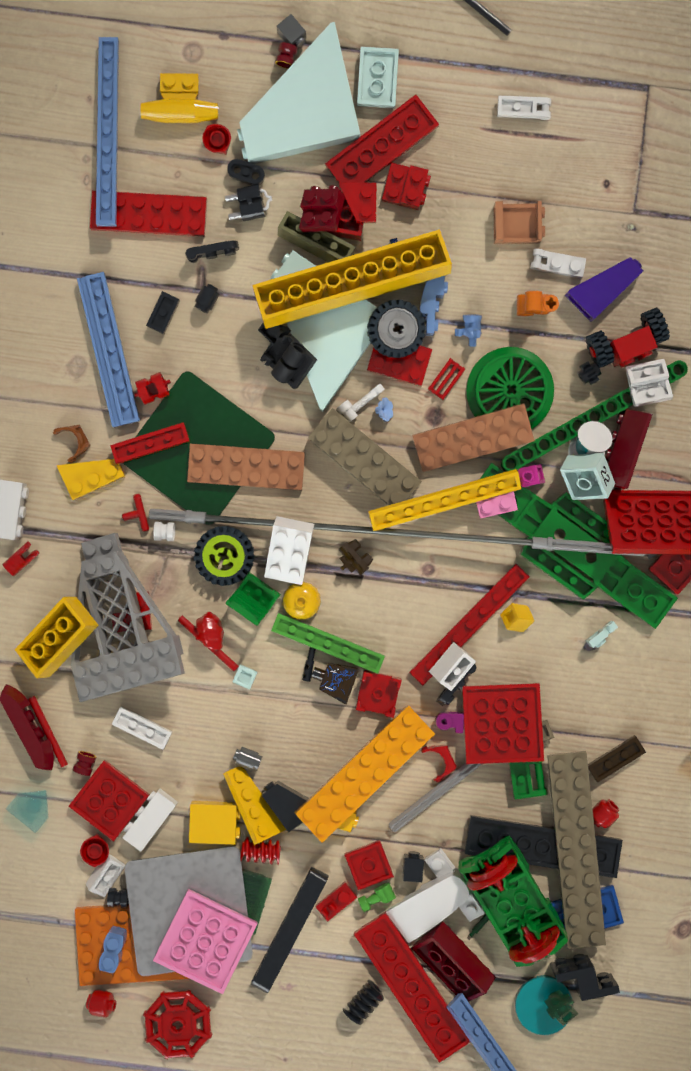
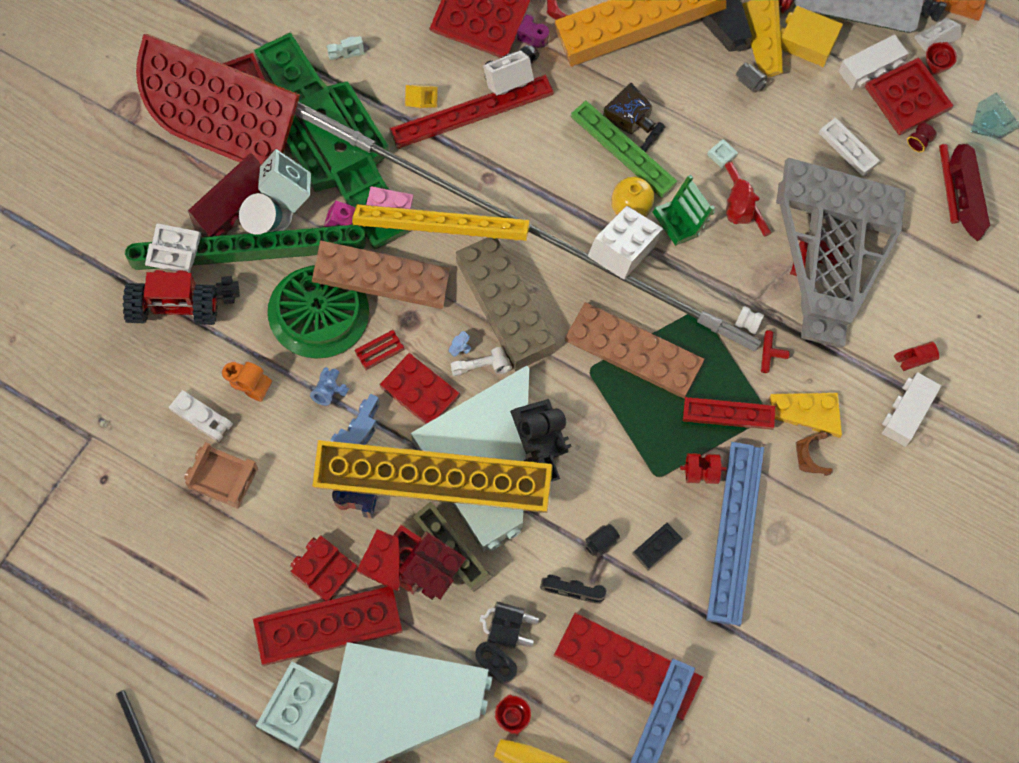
camera: 155 degrees left, 20 degrees down
(56, 637) = (906, 256): yellow brick -> none
(241, 564) = (701, 285): wheel -> none
(352, 560) = (556, 207): dark brown hips -> none
(378, 693) = (593, 83): red panel -> none
(400, 314) = (405, 426): wheel -> none
(523, 107) = (150, 598): white plate -> none
(601, 290) = (166, 367): dark purple slope -> none

